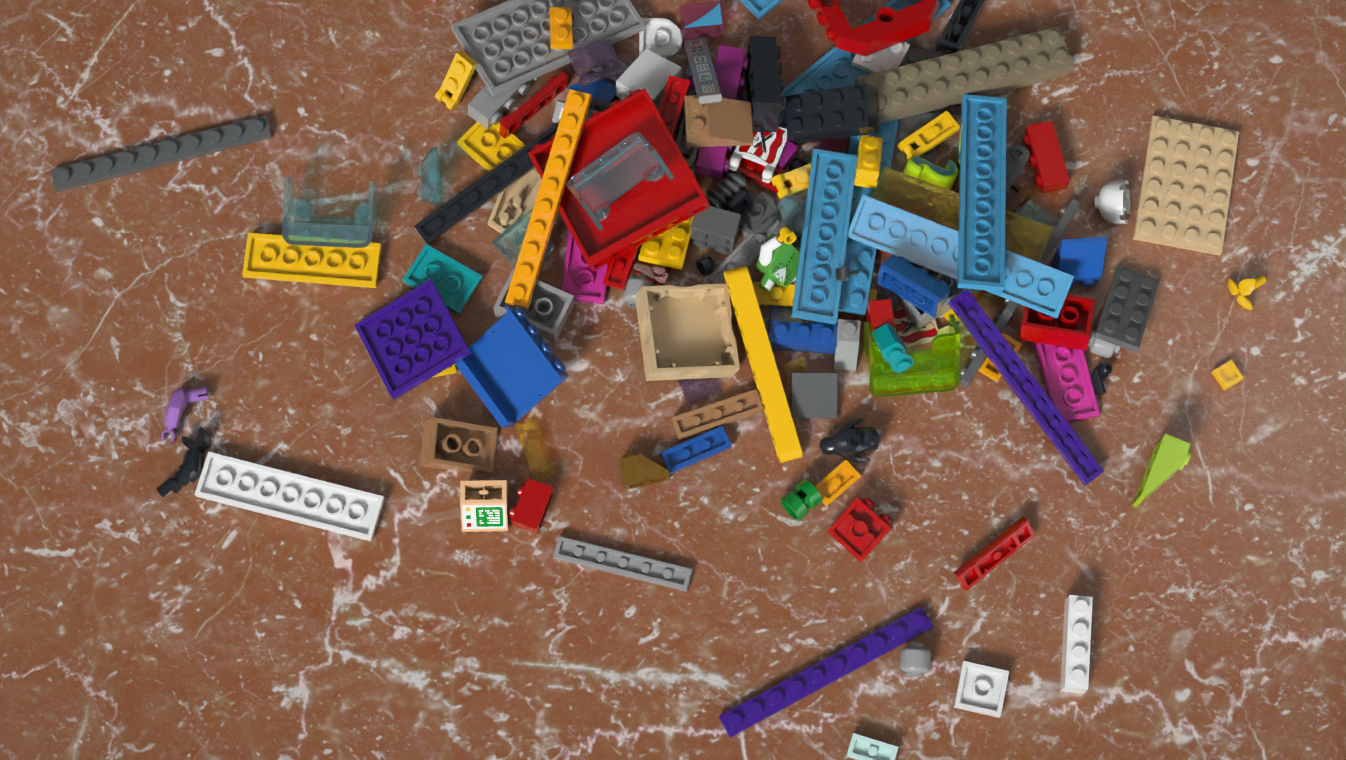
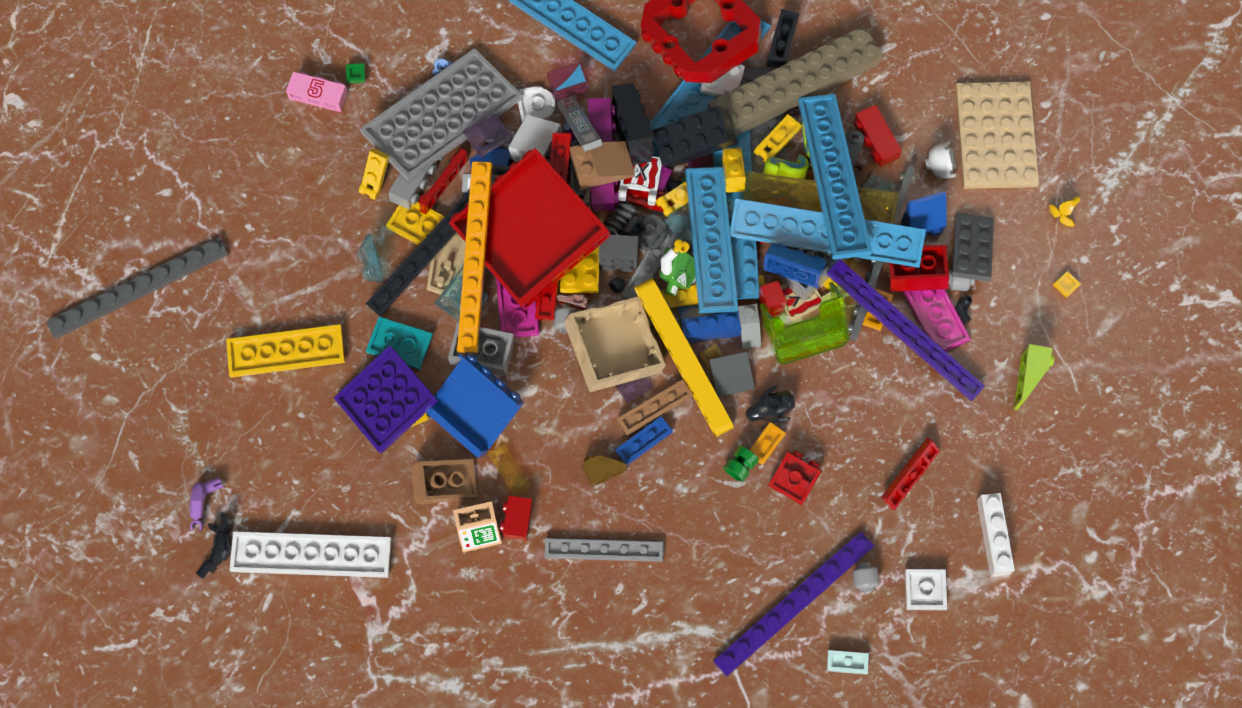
camera: 10 degrees left, 0 degrees up
(304, 230) = (273, 327): clear light blue windscreen -> none
(560, 28) = (452, 112): light orange plate -> none
(616, 174) = (526, 225): clear light blue windscreen -> none
(843, 274) = (734, 268): flat silver hand -> none
(886, 294) = (771, 277): dark grey plate -> none
(892, 348) = (788, 321): teal brick -> none

